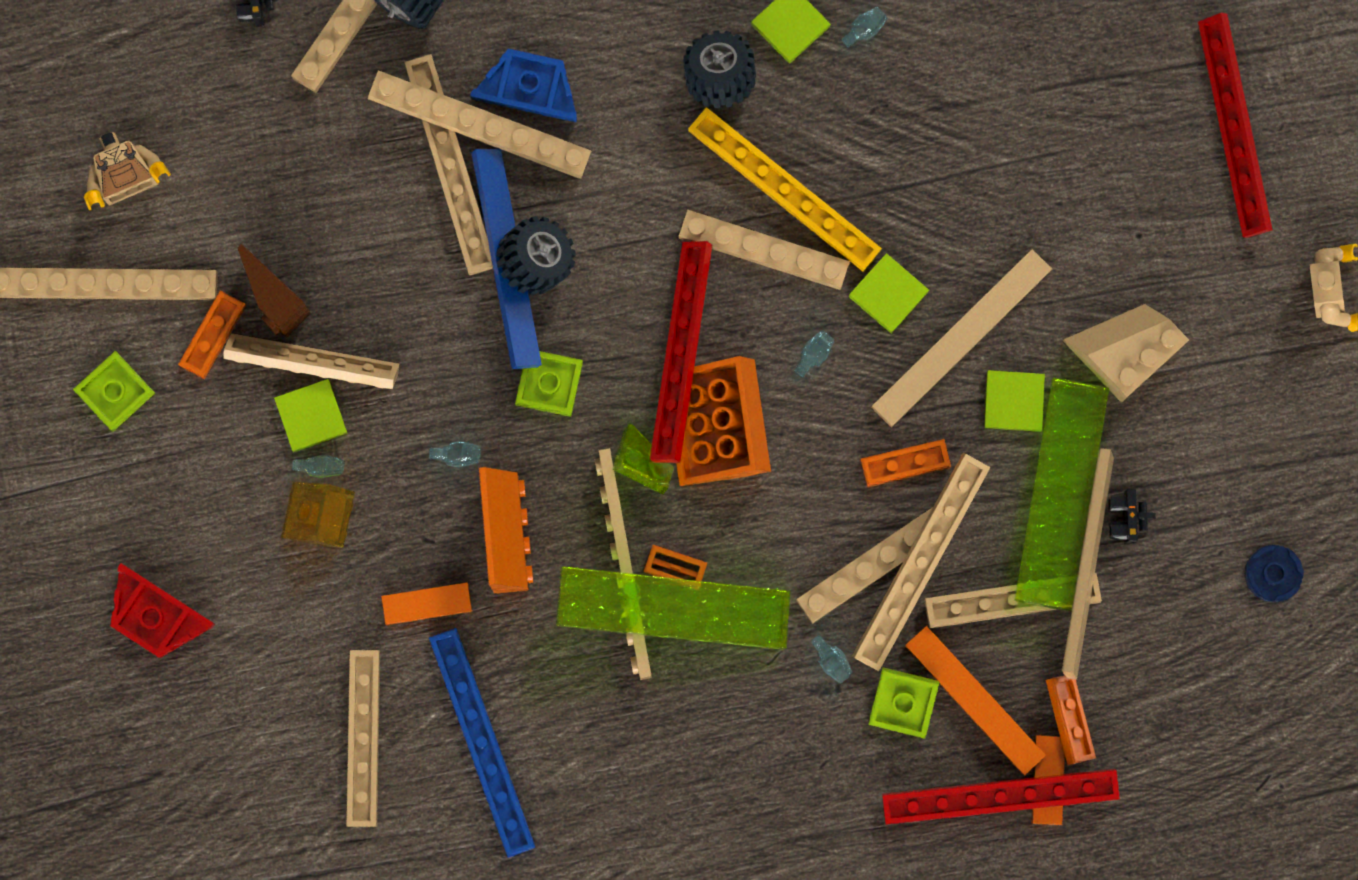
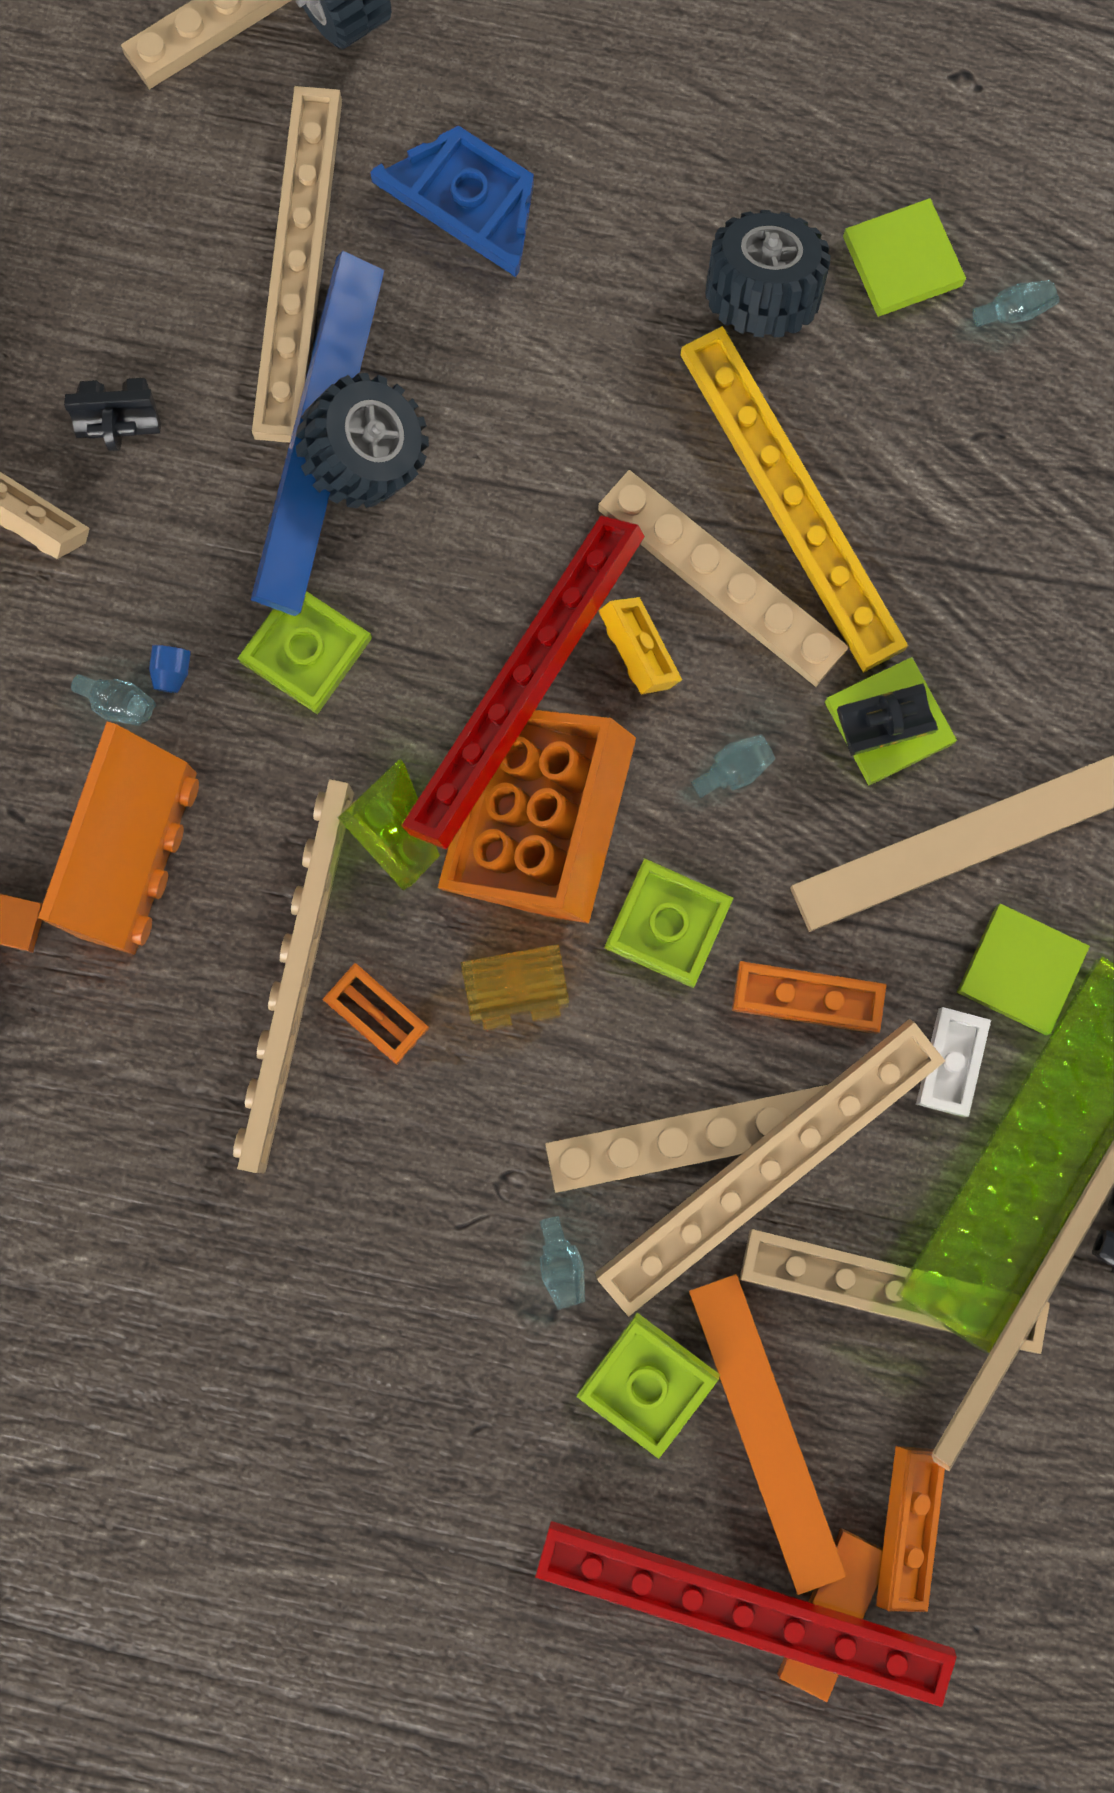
camera: 25 degrees right, 0 degrees up
(386, 294) = (113, 412): none -> black hips
(479, 124) = (365, 218): tan plate -> none
(479, 424) = (168, 668): none -> blue hose
(672, 608) = (335, 1077): clear neon green plate -> none
(735, 307) = (639, 645): none -> yellow plate
(745, 521) = (515, 986): none -> clear yellow brick
(813, 453) = (668, 923): none -> lime tile
(886, 295) = (886, 719): none -> black hips
(996, 454) = (961, 1043): none -> white plate

